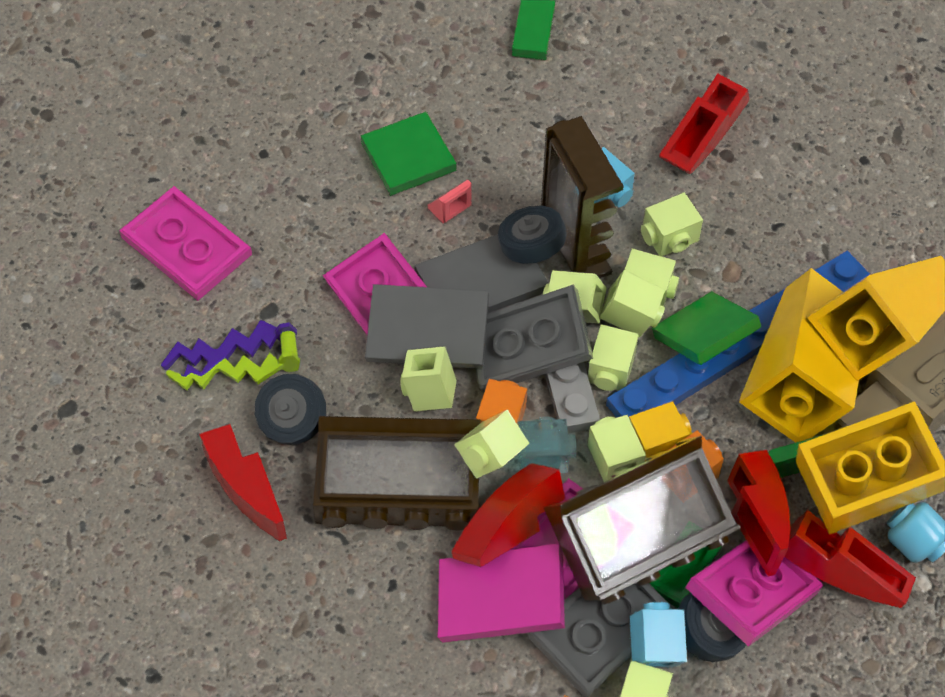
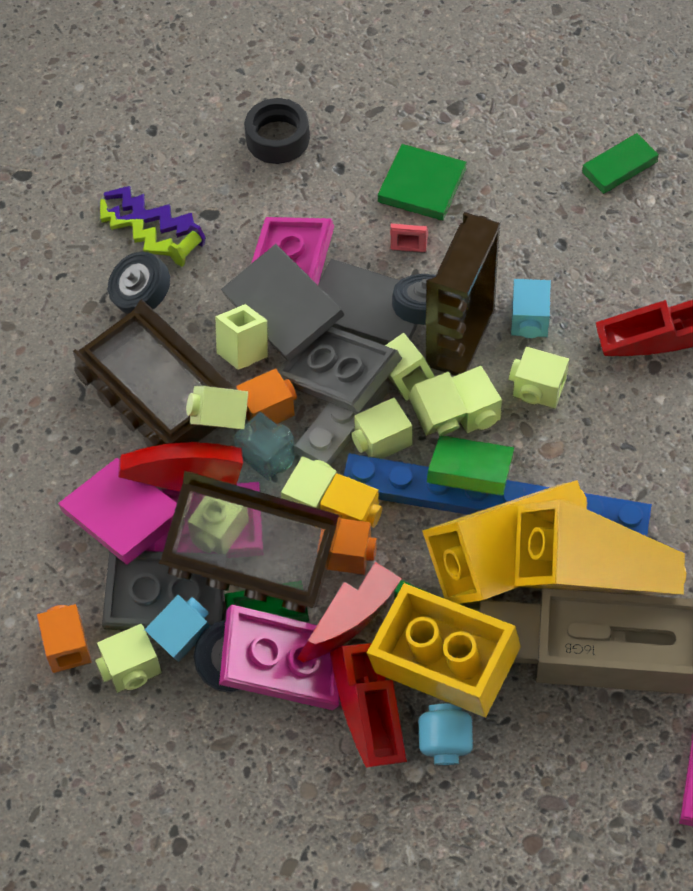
camera: 50 degrees right, 0 degrees up
(185, 243) = (209, 127): dark pink tile -> none
(243, 480) = (62, 302): red slope -> none
(244, 179) = (273, 111): none -> black tyre

